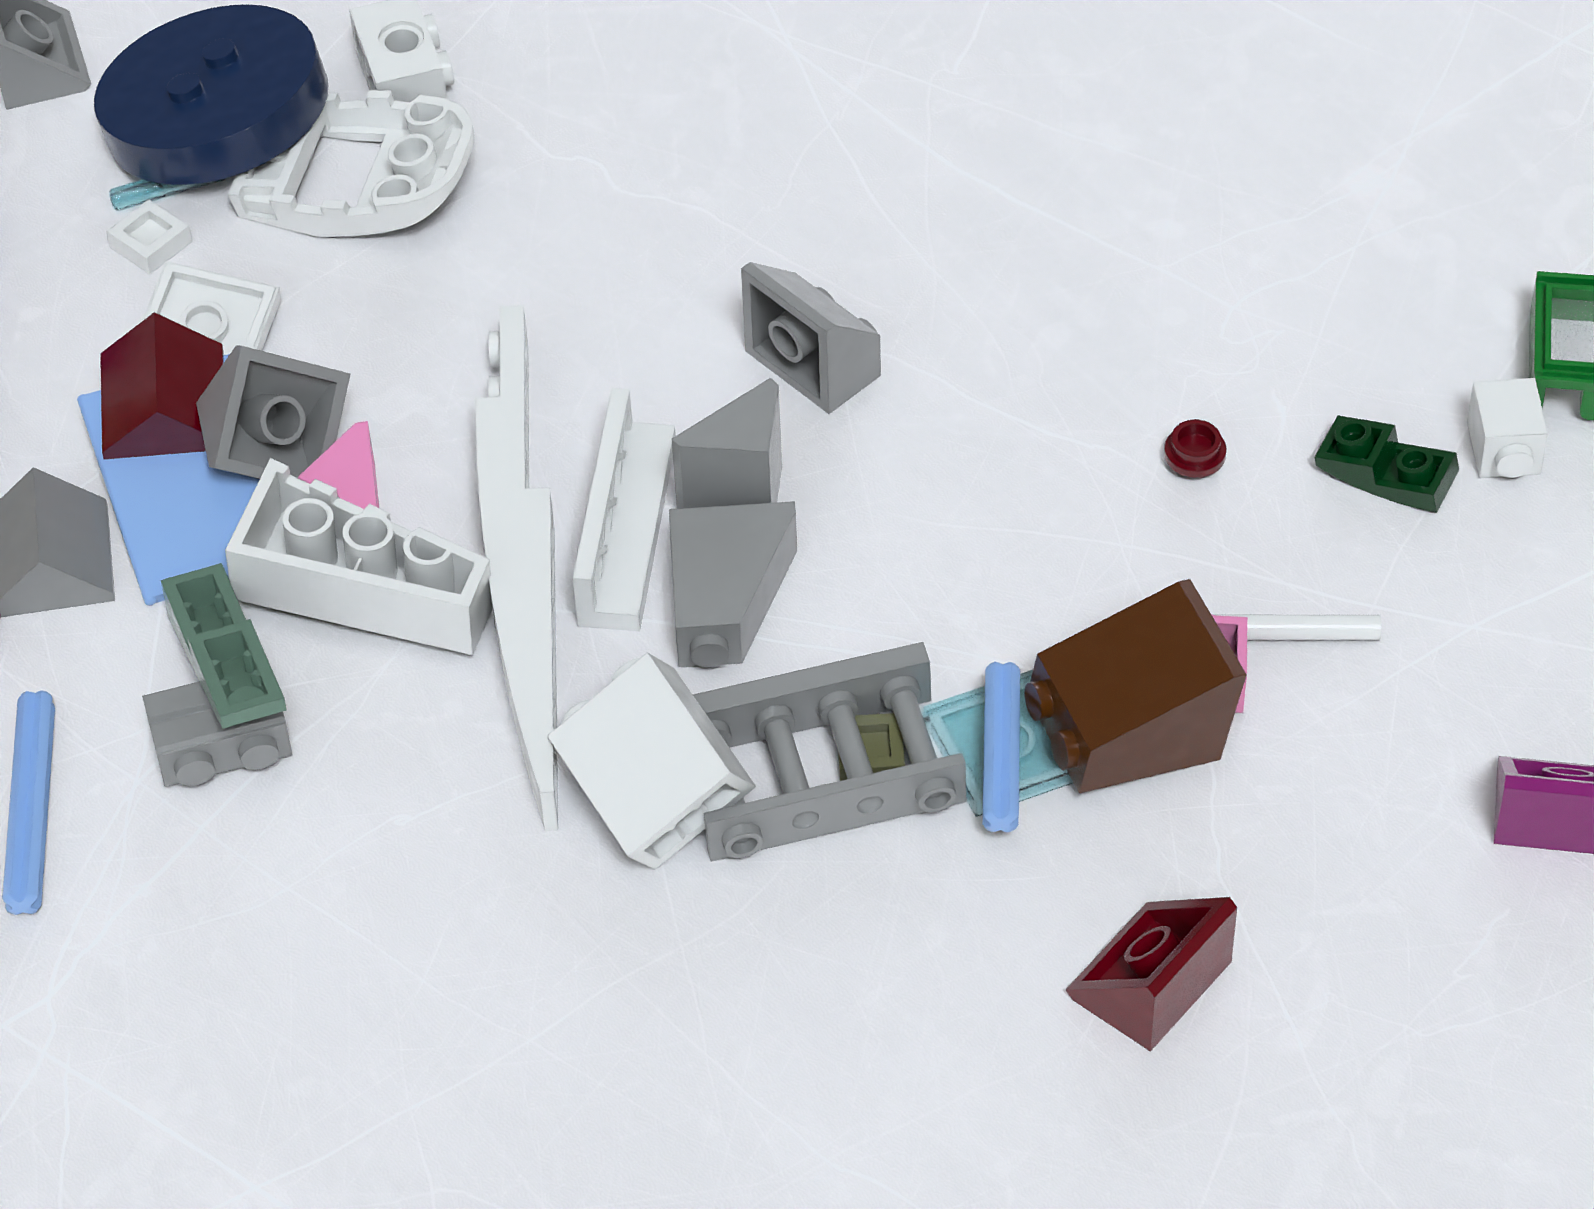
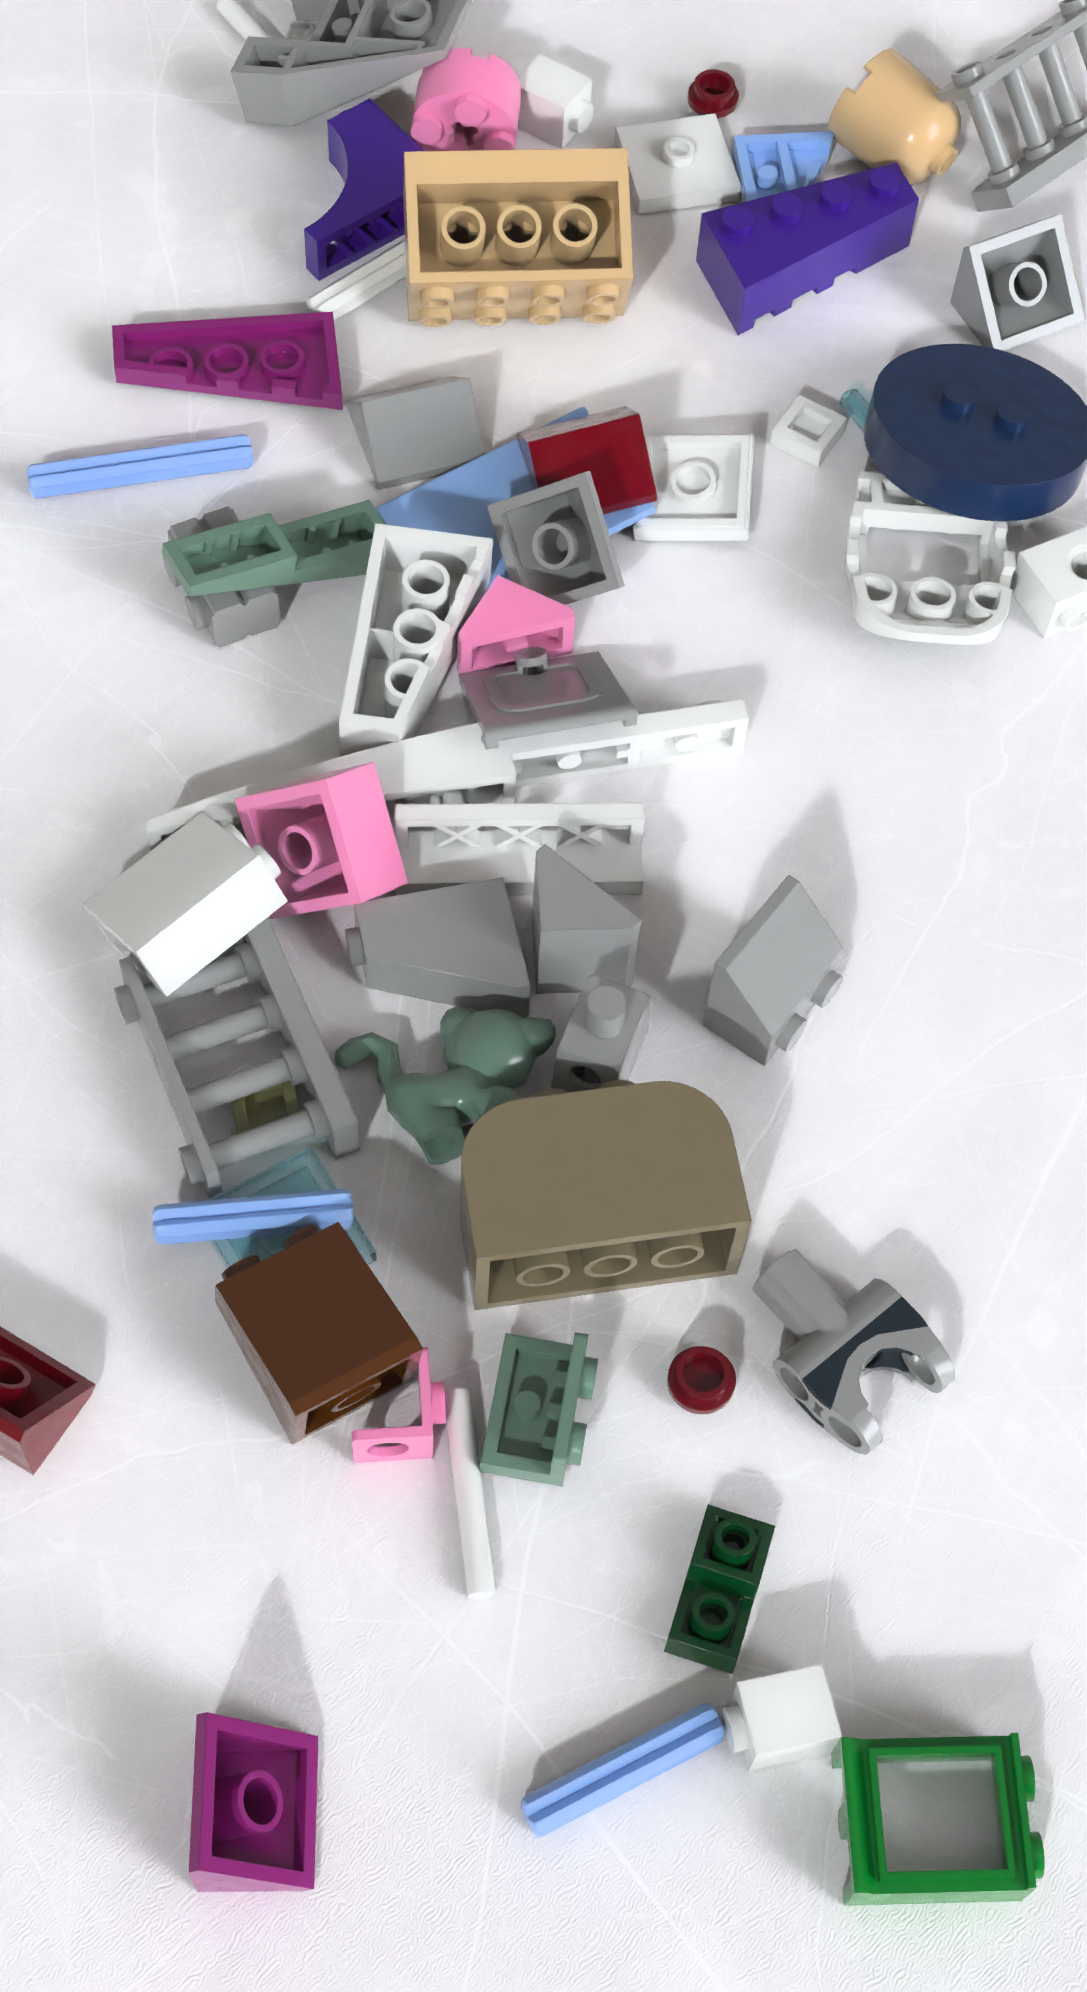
camera: 75 degrees right, 10 degrees up
(459, 456) = (545, 695): none -> light grey container
(588, 629) = (326, 838): none -> bright pink slope
(854, 555) = (485, 1059): none -> sand green animal
(865, 465) = (602, 1034): none -> light grey torso
(1022, 478) = (600, 1193): none -> dark tan brick
(1179, 345) = (844, 1343): none -> light grey connector
(1222, 549) = (535, 1407): none -> sand green bracket
(1540, 546) = (622, 1769): none -> light blue axle

